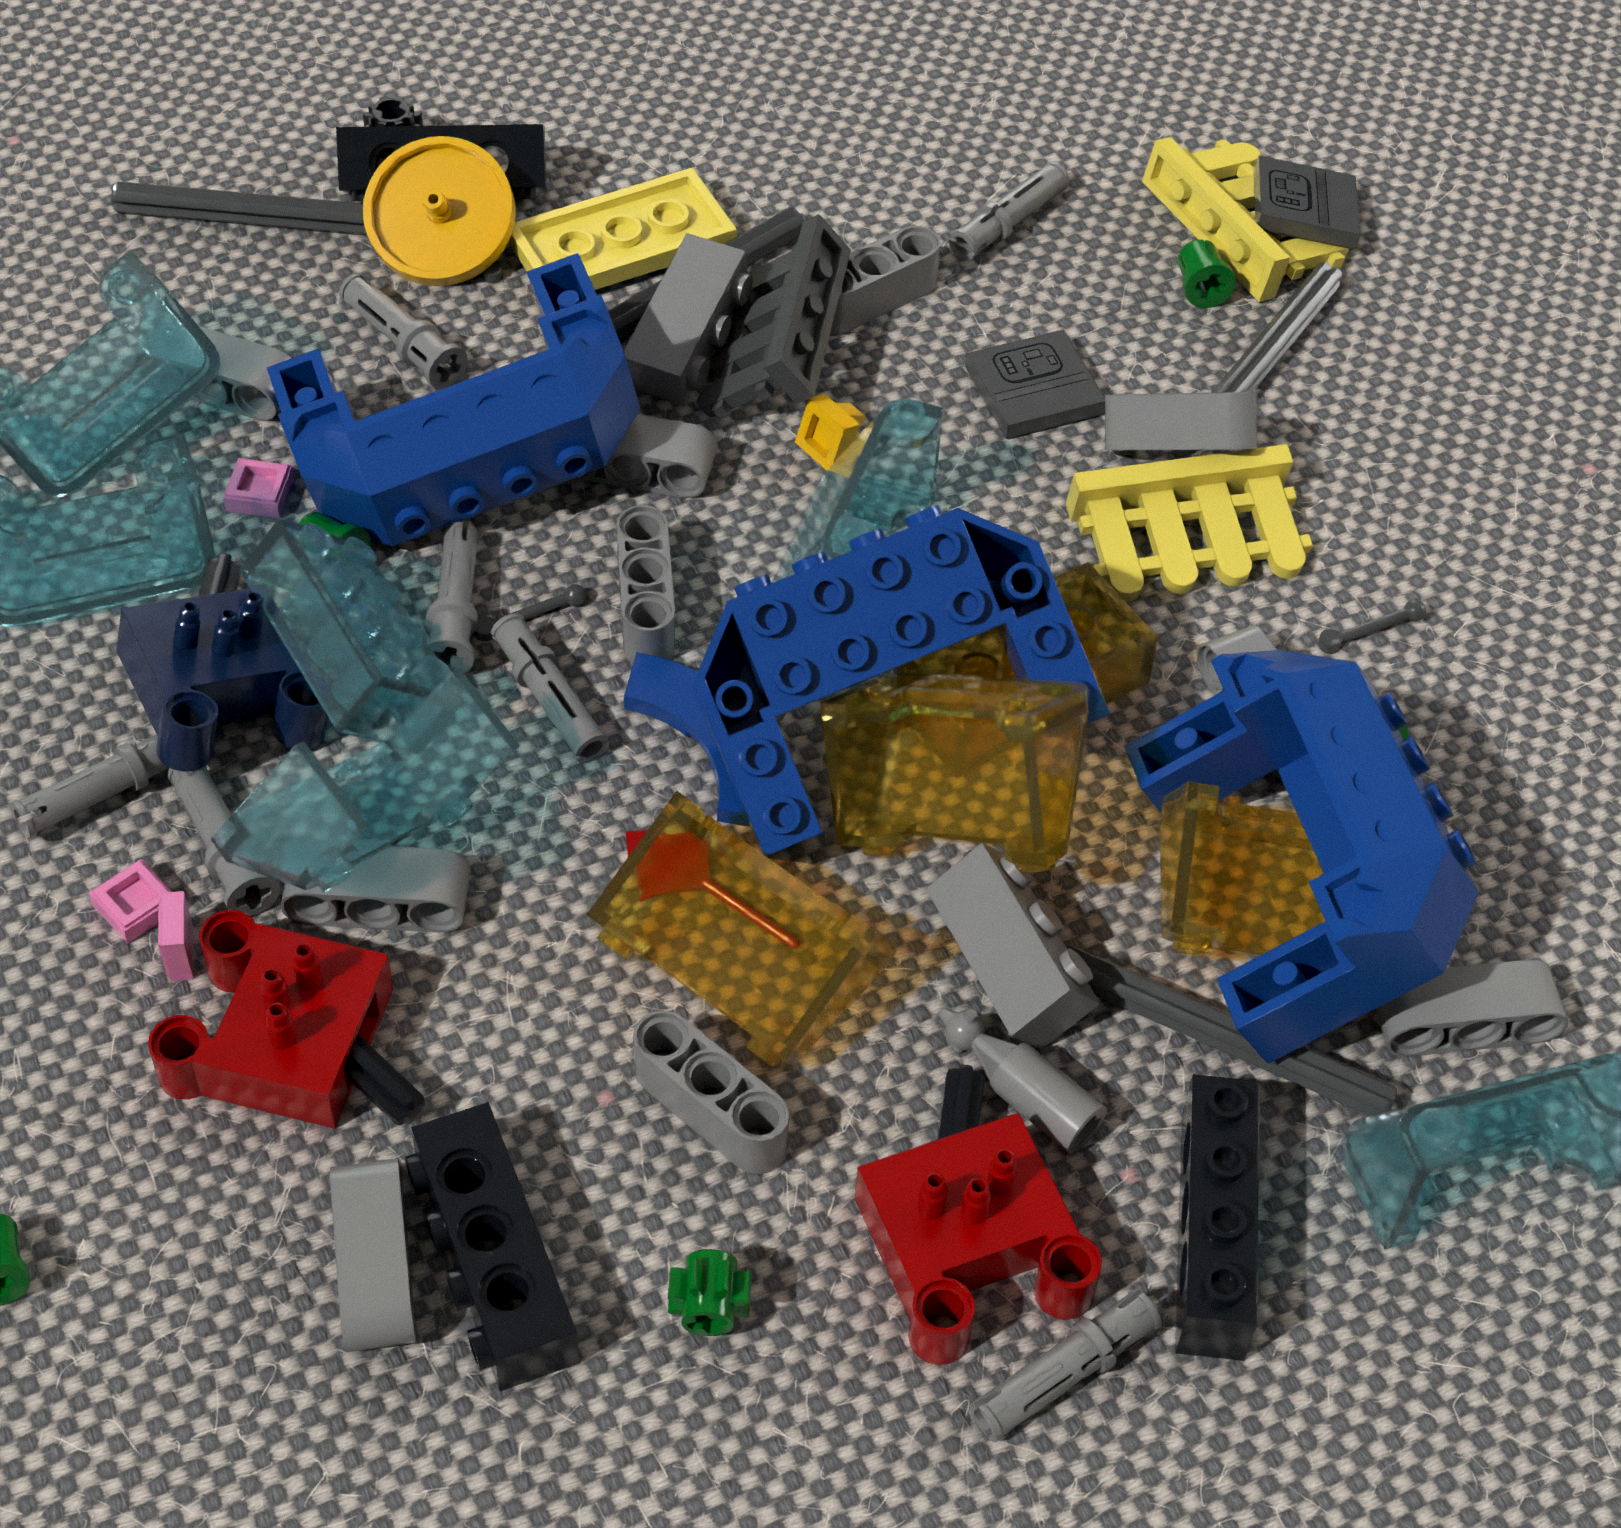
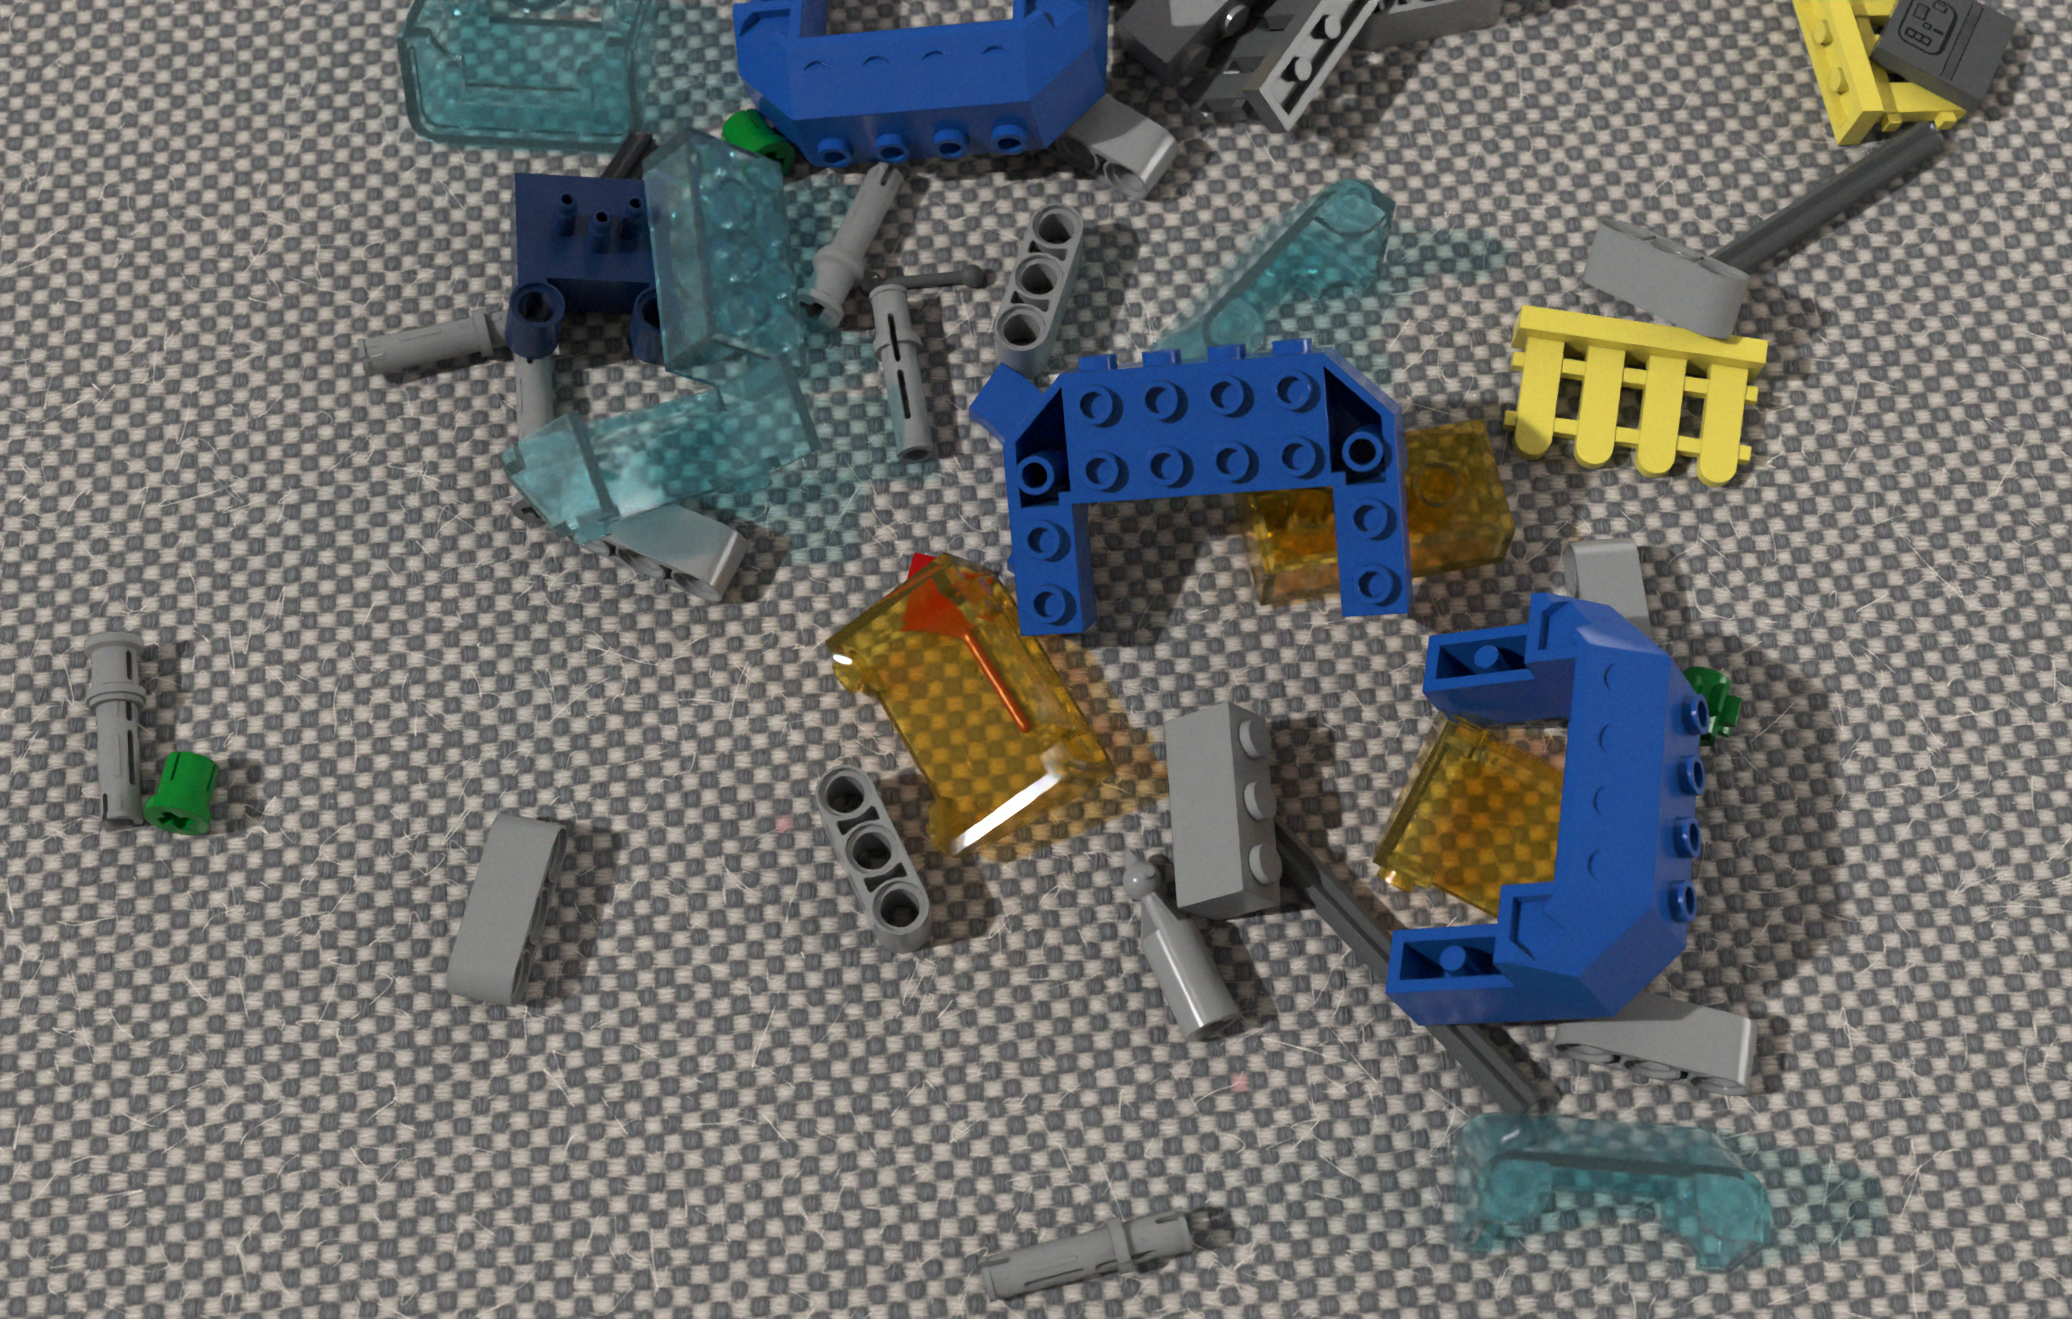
camera: 25 degrees right, 15 degrees up
(130, 900) = (438, 473): bright pink tile -> none
(175, 935) = (456, 526): bright pink tile -> none
(258, 488) = (711, 59): bright pink tile -> none
(292, 1029) = (522, 656): red piece -> none
(517, 1342) = (626, 1040): black brick -> none
(709, 1292) = (786, 1061): green gear -> none
(828, 429) = (1299, 167): yellow tile -> none
(957, 763) = (1243, 602): clear yellow windscreen -> none
(971, 1216) = (1060, 1073): red piece -> none
(1035, 384) = (1544, 174): dark grey tile -> none
(1206, 277) = (1787, 97): green bush -> none
(1218, 1219) = (1294, 1164): black brick -> none
(1331, 640) = (1719, 574): dark grey hinge -> none

